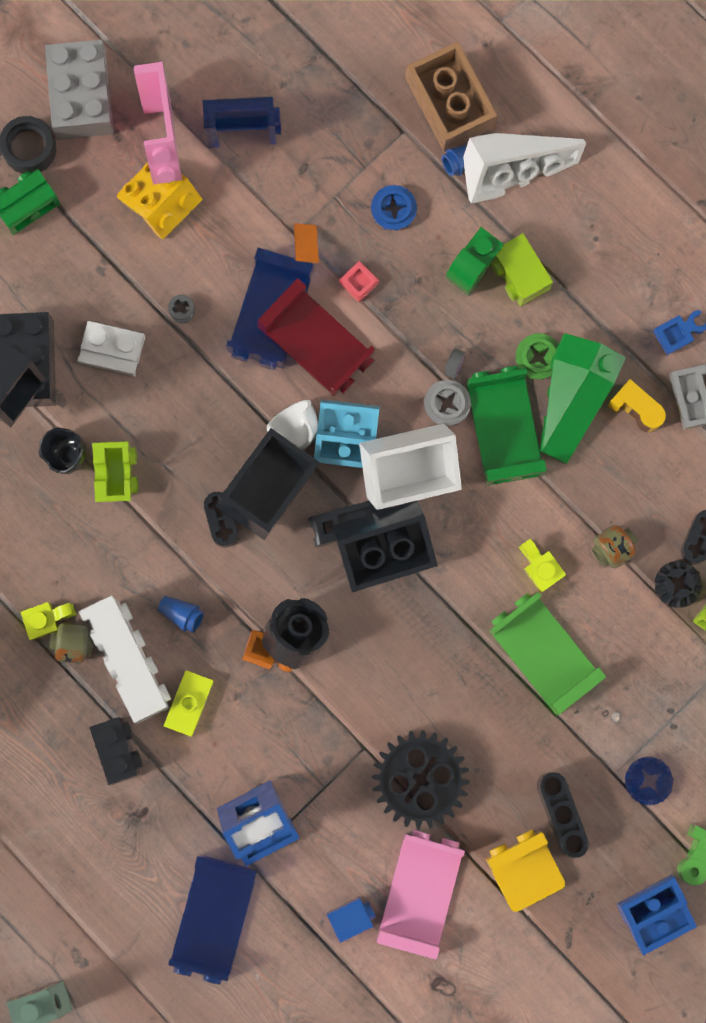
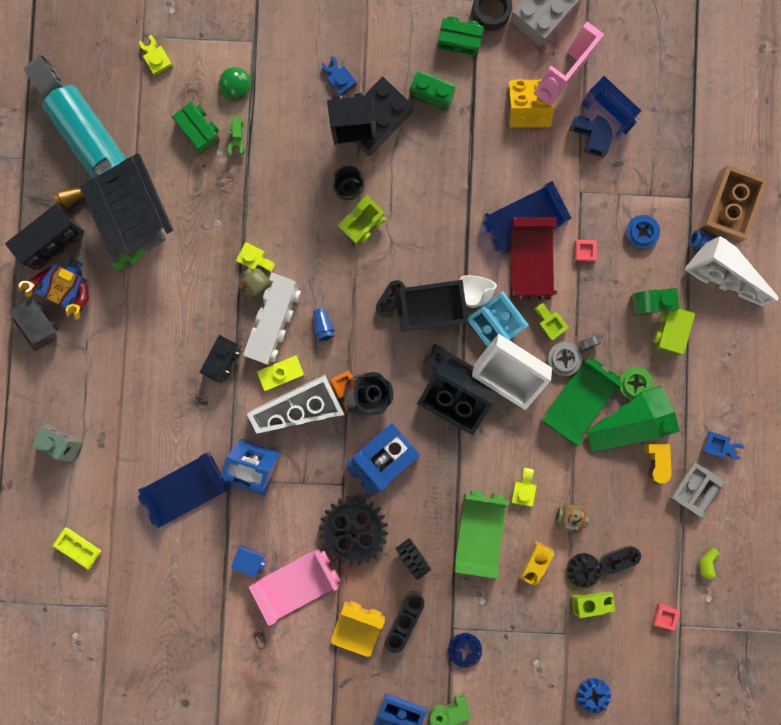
camera: 45 degrees right, 5 degrees up
(51, 280) = (432, 90): none -> green brick
(111, 348) = (426, 156): white plate -> none
(179, 317) = (487, 169): dark grey bush -> none
(242, 710) = (302, 405): none -> white wedge
(252, 158) = (598, 133): none -> dark blue brick
(306, 243) = (579, 204): orange sticker -> none
(382, 708) = (369, 473): none -> blue brick
(401, 382) = (552, 323): none -> lime plate
(506, 744) = (413, 559): none -> black tyre
(628, 625) = (536, 563): none -> yellow leg

